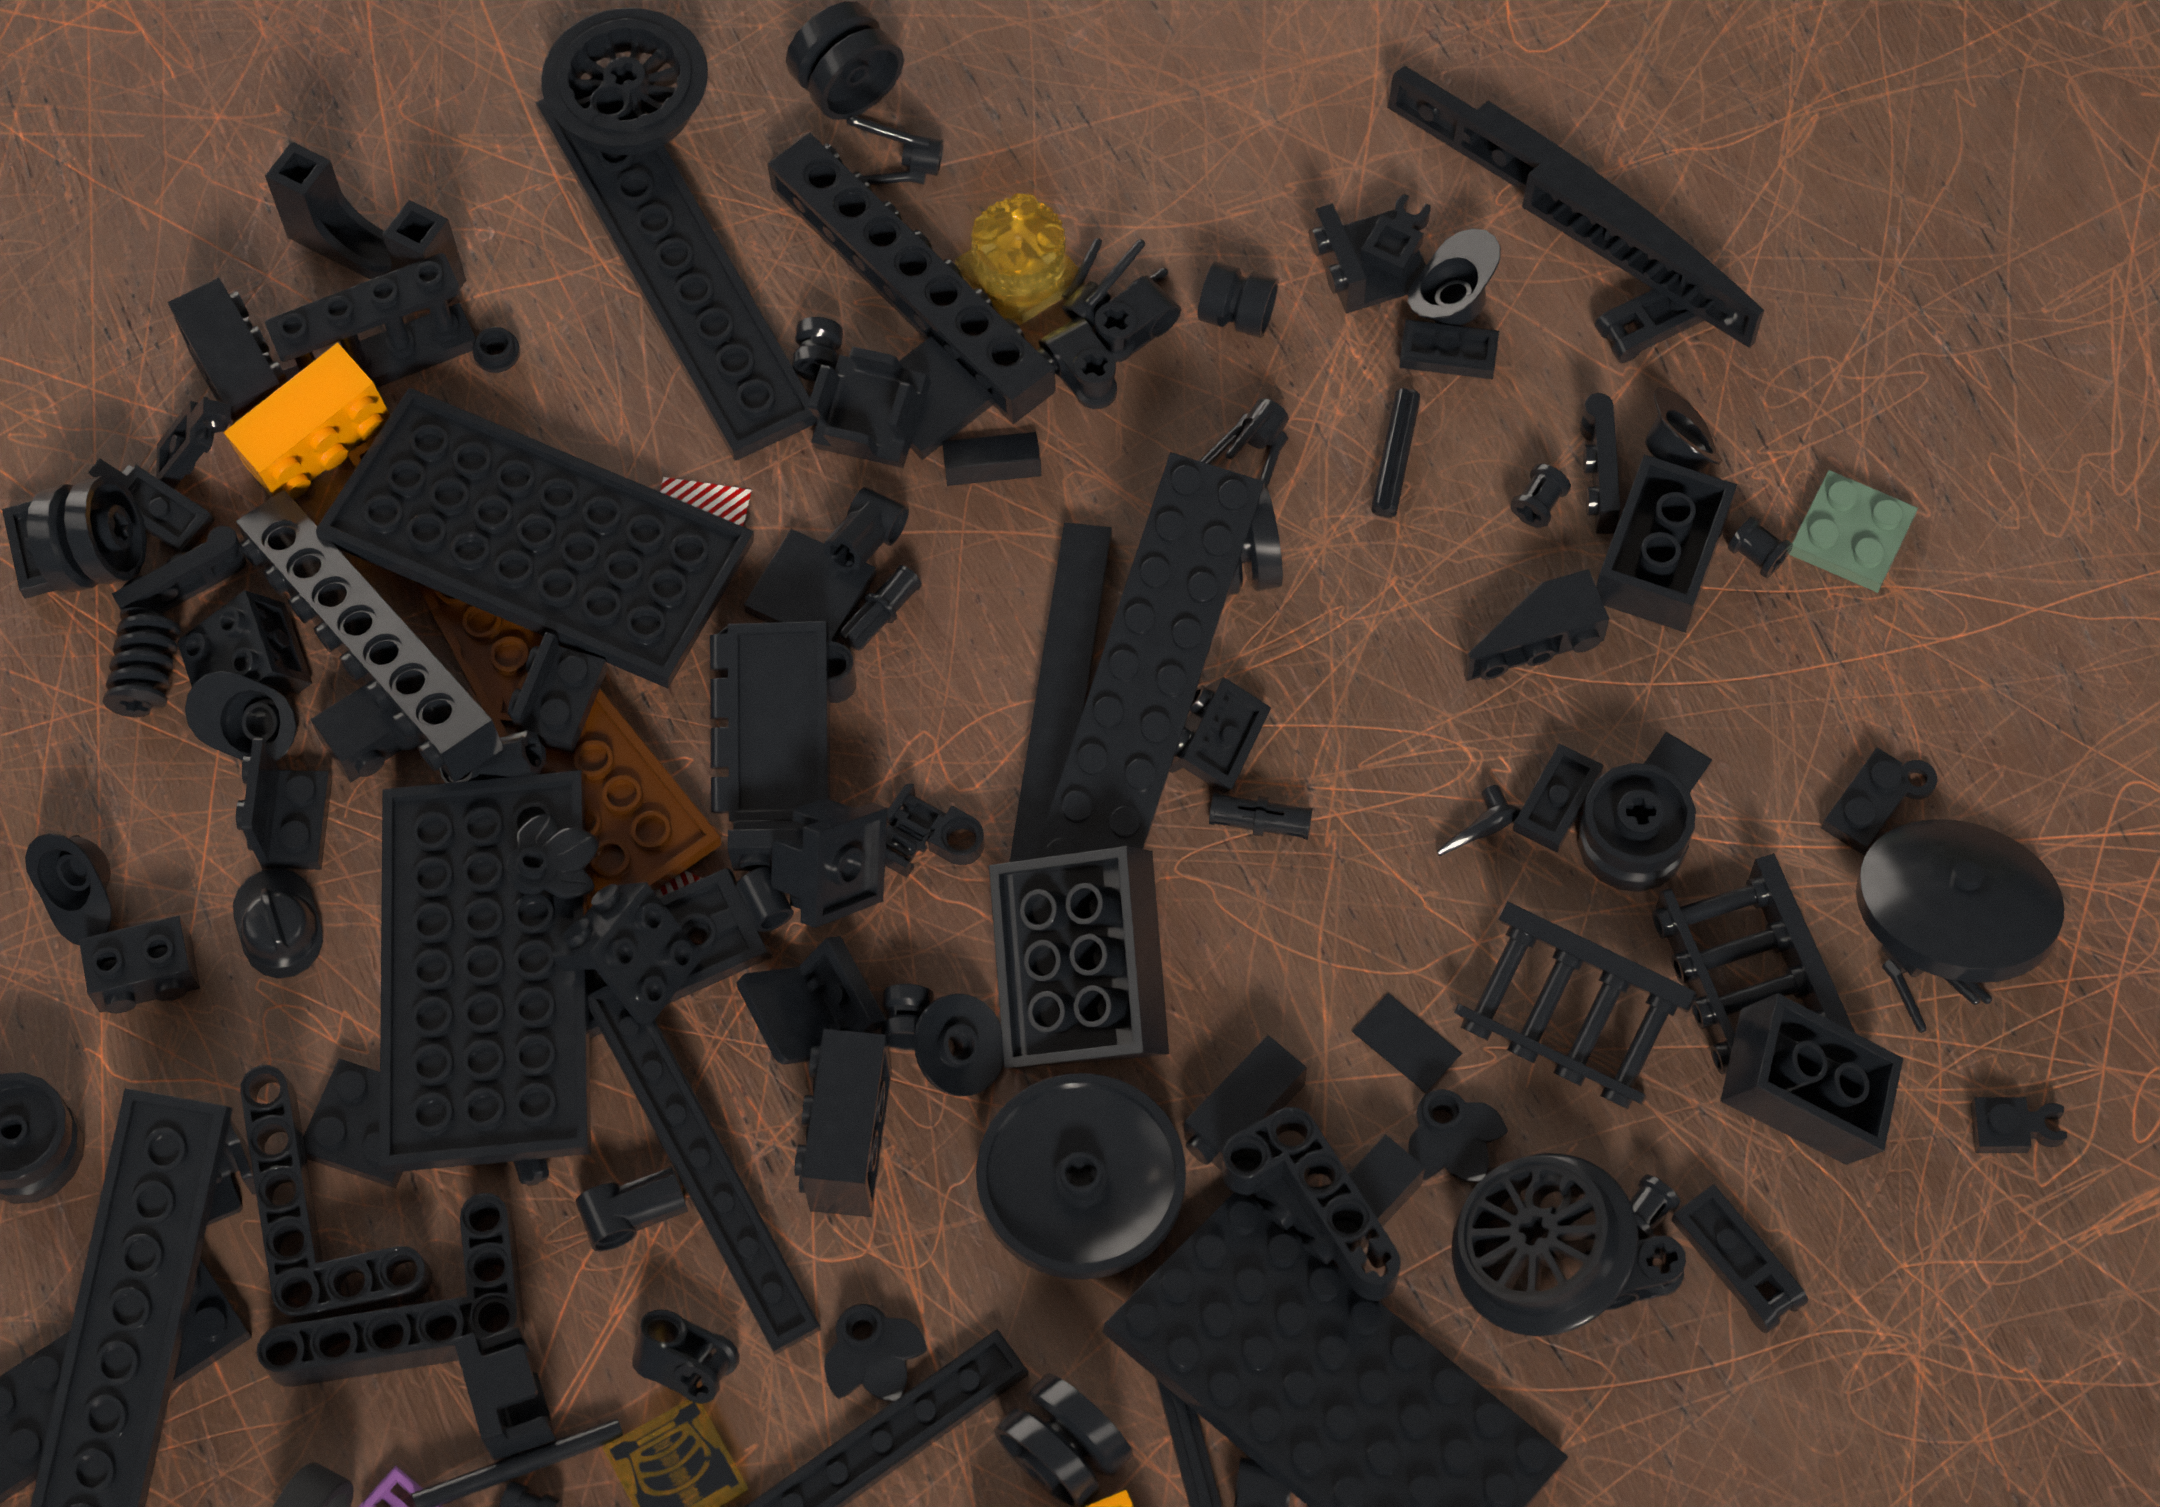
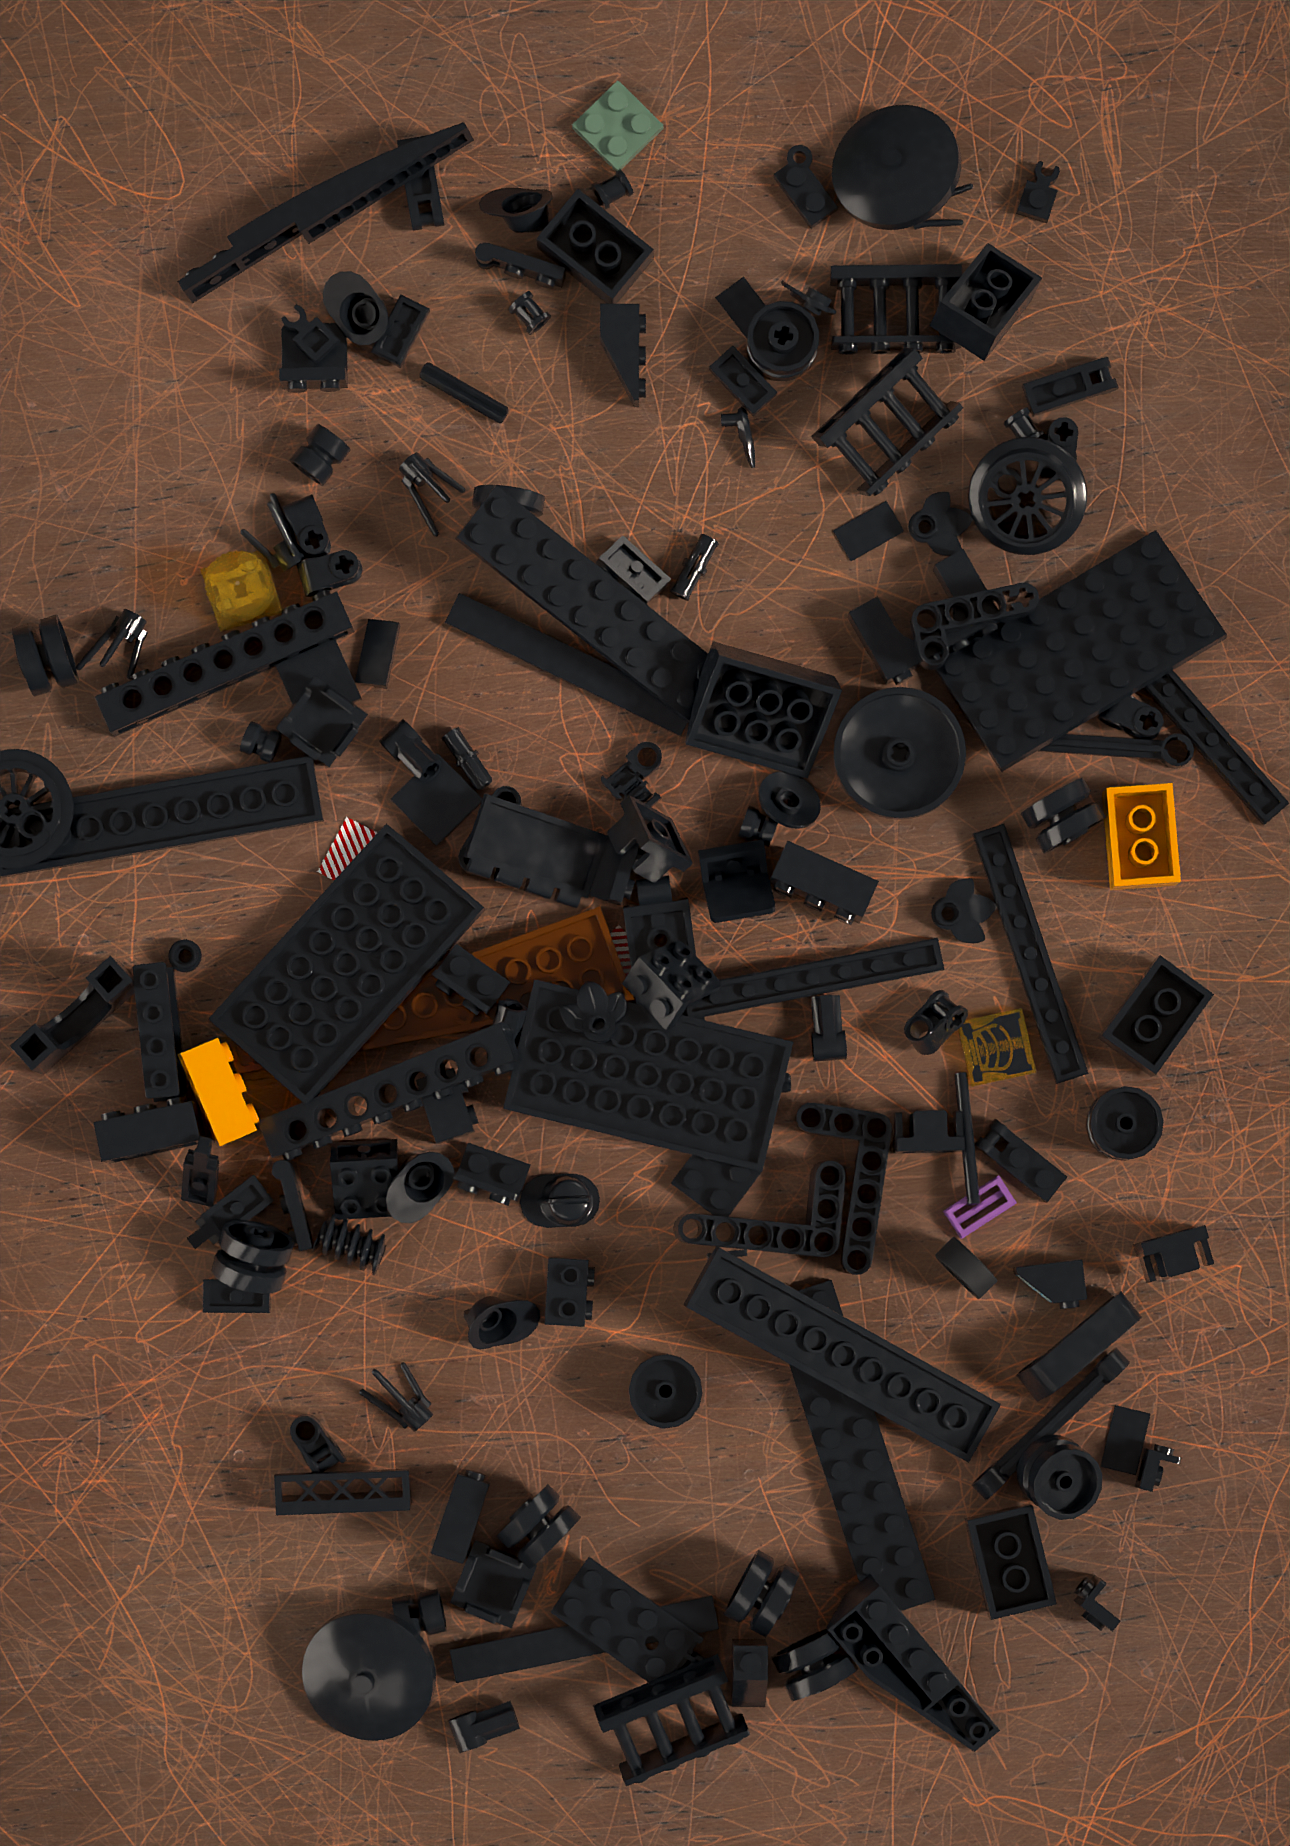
camera: 75 degrees left, 20 degrees up
(1712, 843) = (811, 300): none -> black plate

